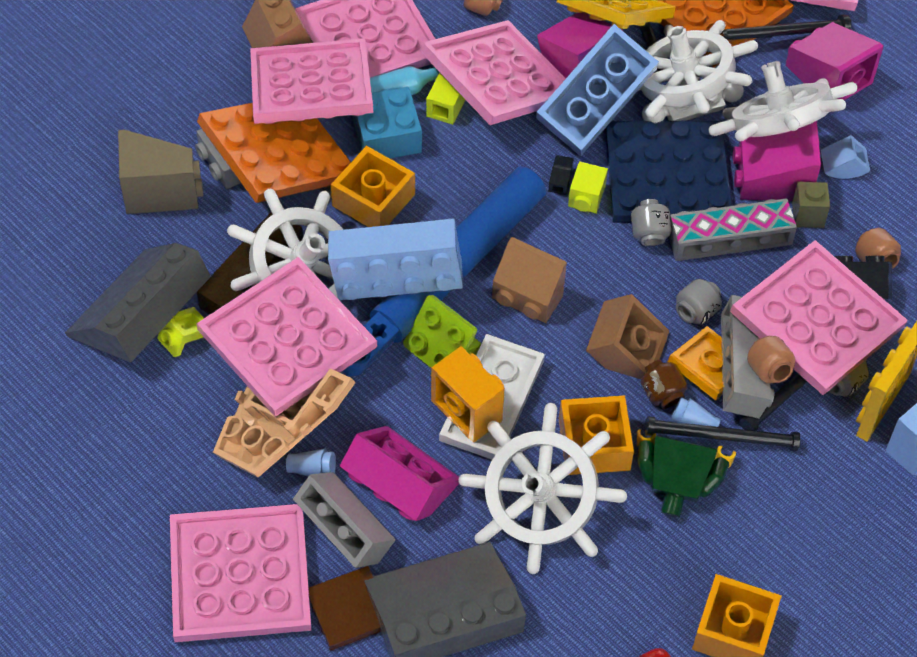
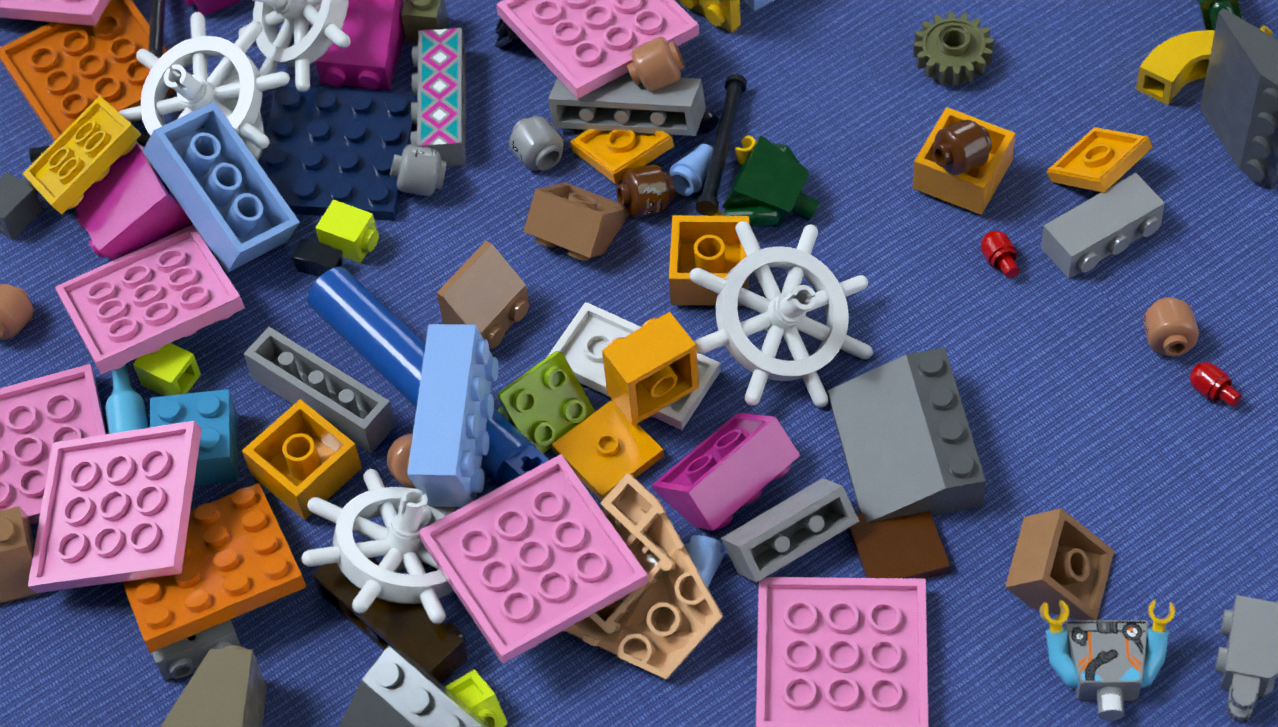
camera: 75 degrees left, 0 degrees up
(407, 392) = (607, 449): none -> light orange plate
(439, 182) = (334, 395): none -> light grey brick
(726, 603) = (962, 147): none -> reddish brown head
(874, 594) = (953, 49): none -> olive gear

